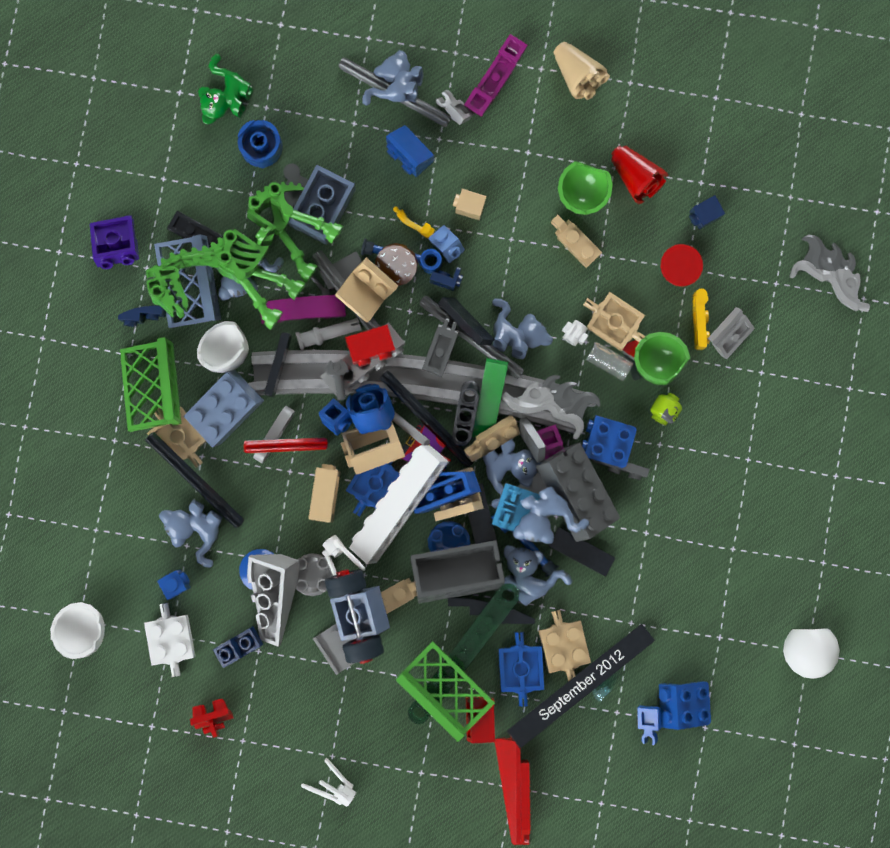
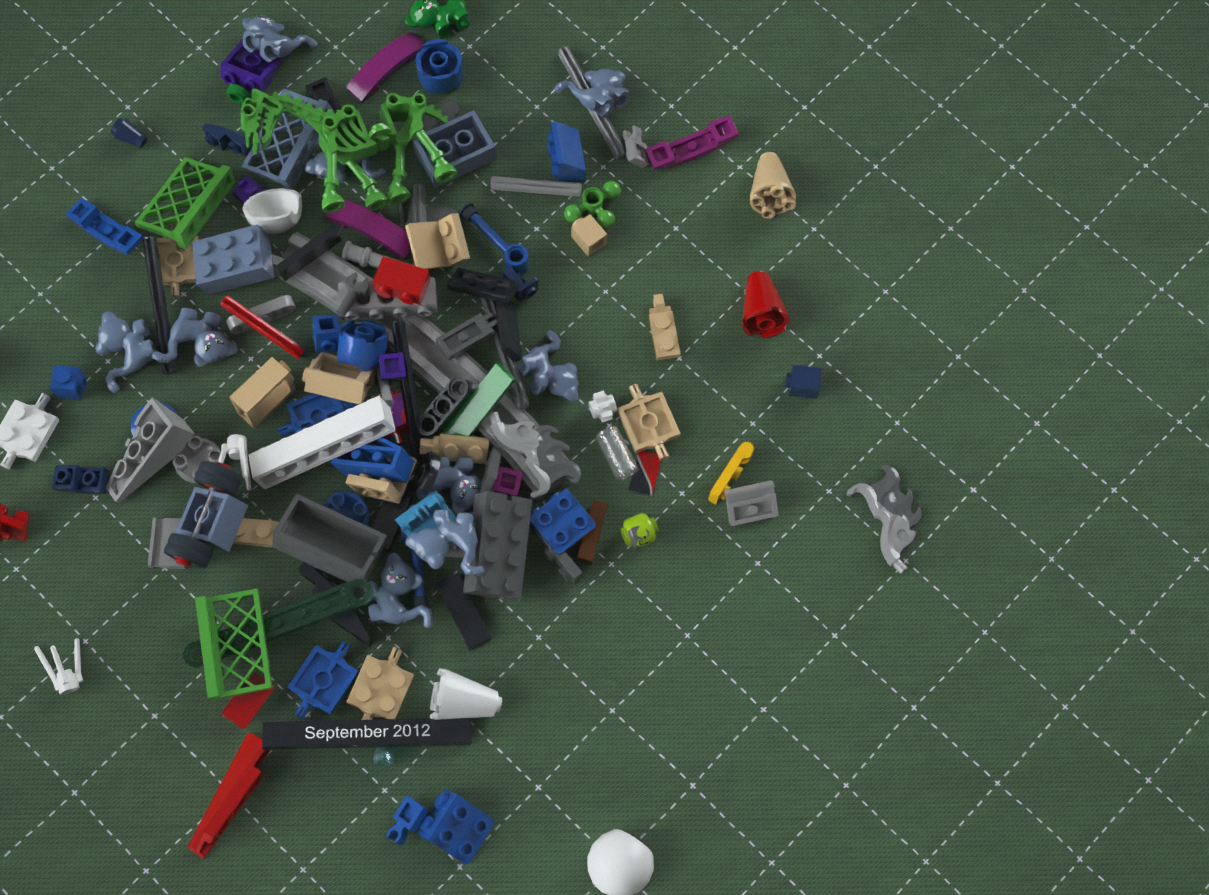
camera: 35 degrees right, 15 degrees down
(62, 360) = (127, 132): none -> dark blue cone
(106, 212) = (265, 36): none -> sand blue animal
(106, 448) = (104, 228): none -> blue slope
(121, 271) = (237, 93): none -> green tile
(188, 343) = (246, 188): none -> dark purple tile
(215, 169) = (383, 64): none -> magenta slope
(255, 485) = (209, 344): none -> sand blue animal
(397, 263) = (484, 240): tile -> none
(401, 191) = (536, 186): none -> light grey axle
(406, 411) = (392, 366): none -> dark purple tile
(422, 300) = (483, 285): none -> black tile
(425, 231) = (531, 232): yellow piece -> none
(446, 243) = (542, 256): medium blue bracket -> none
(472, 182) = (605, 218): none -> bright green piece
(490, 475) = (426, 475): none -> black tile
(584, 188) = (702, 284): bright green cylinder -> none
(627, 417) = (590, 541): none -> reddish brown piece
(627, 616) = (462, 698): none -> white cone
(661, 357) = (666, 478): bright green cylinder -> none
(681, 265) = (747, 412): red piece -> none

